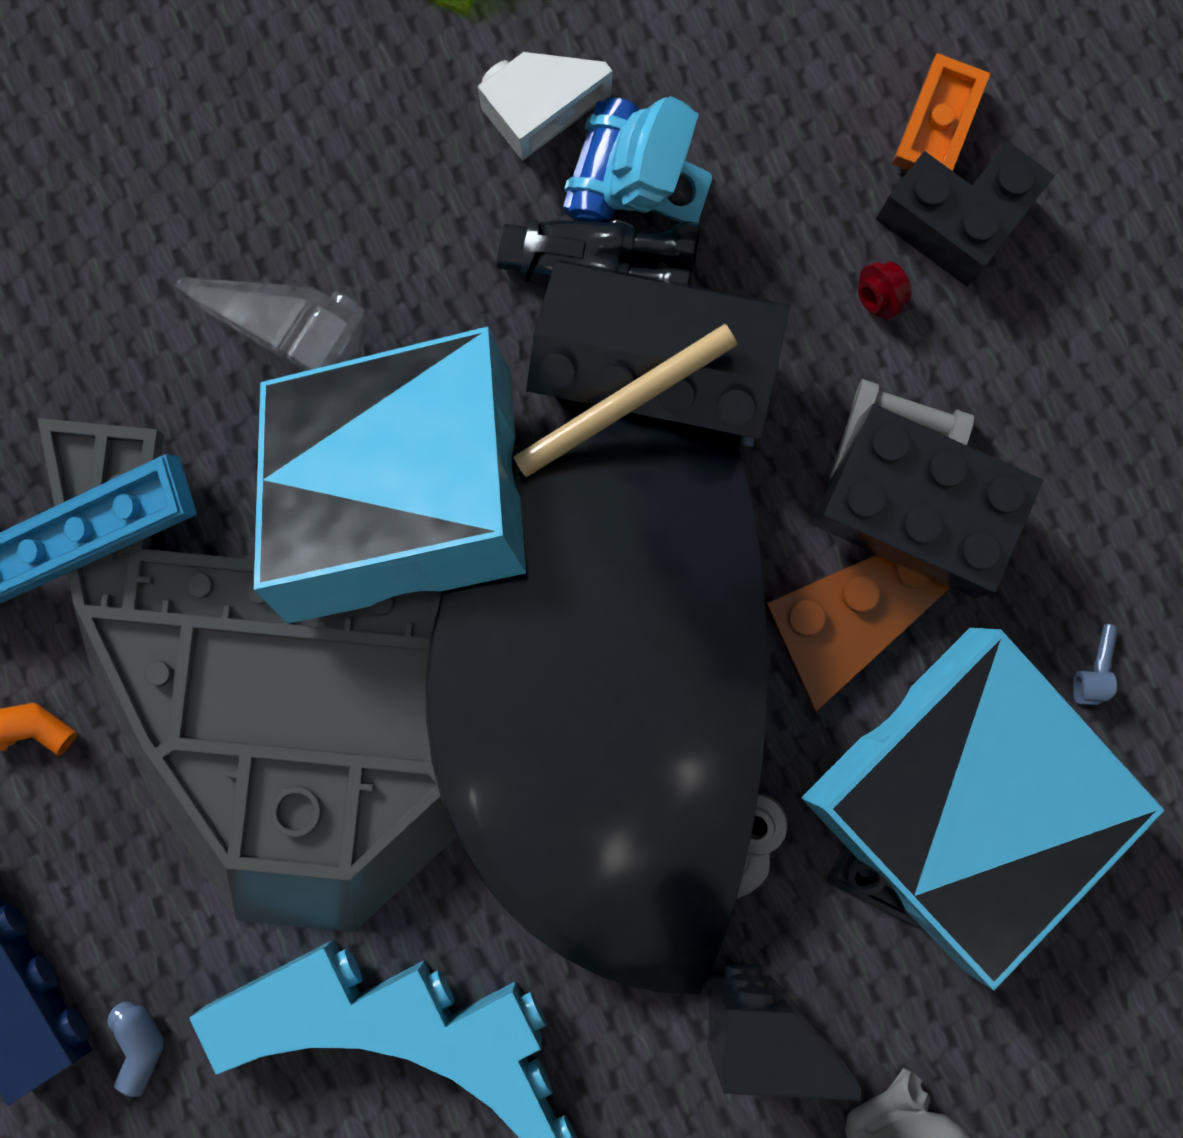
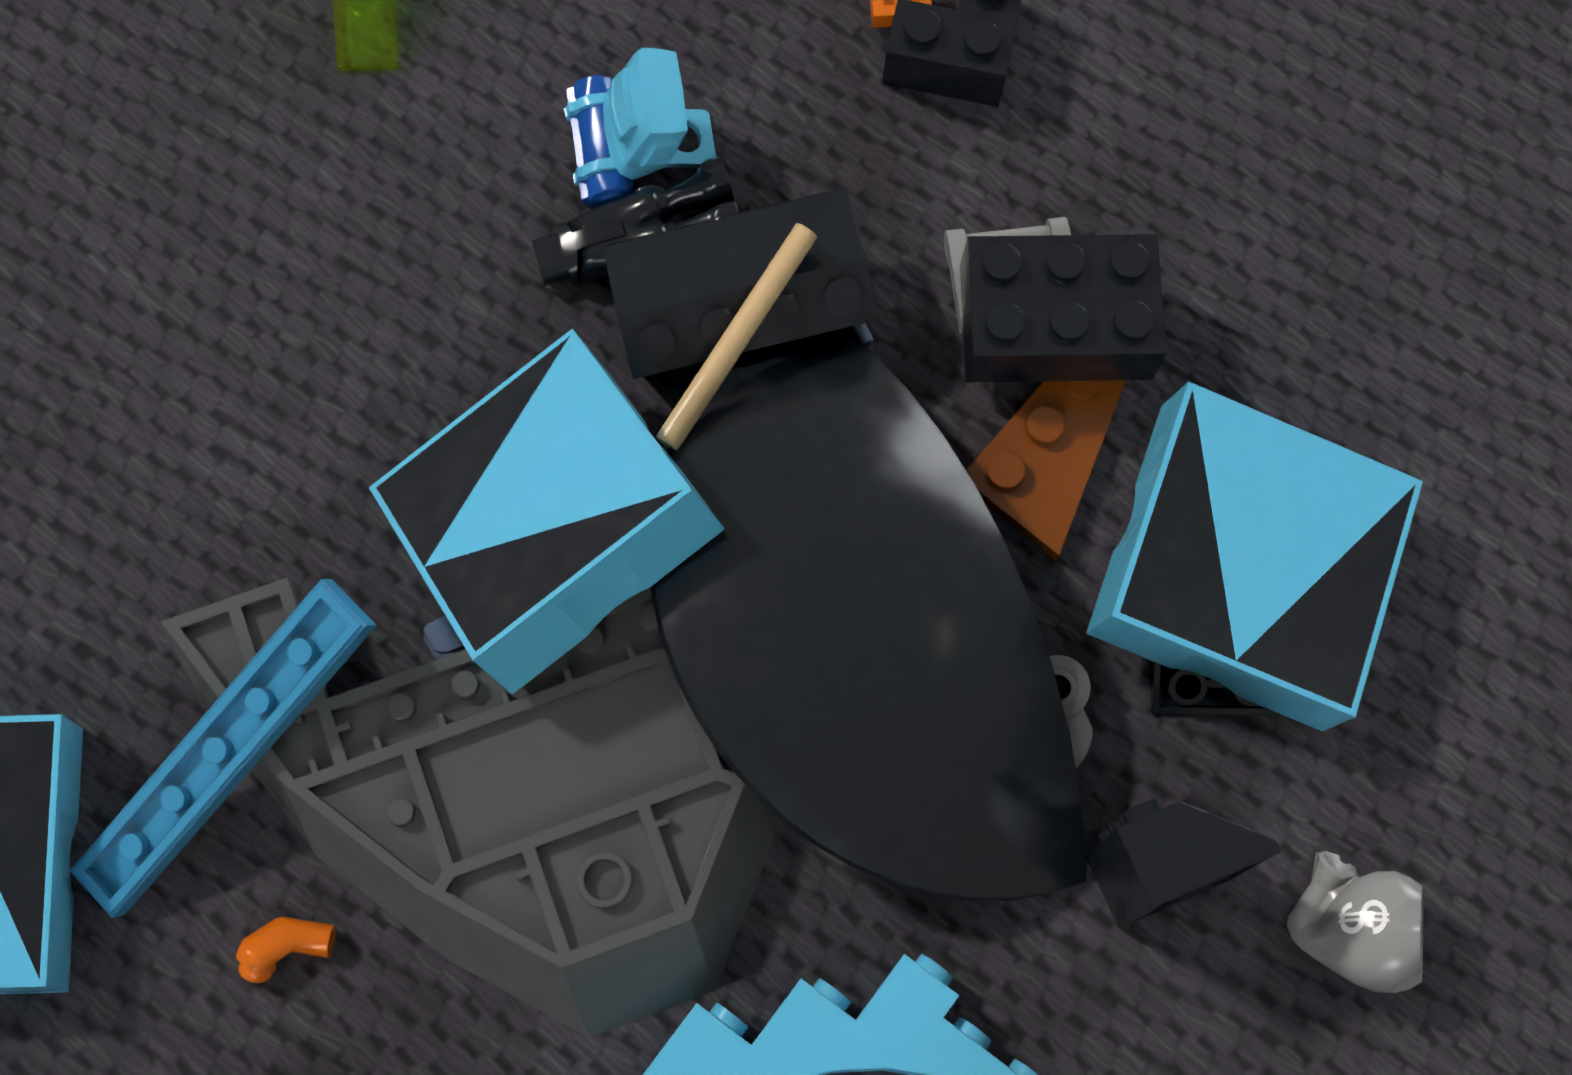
camera: 30 degrees left, 10 degrees down
(284, 319) = (355, 426): clear slope -> none
(541, 96) = (509, 109): white slope -> none
(884, 289) = (923, 140): dark red plate -> none
(1101, 684) = (1309, 406): sand blue hand -> none

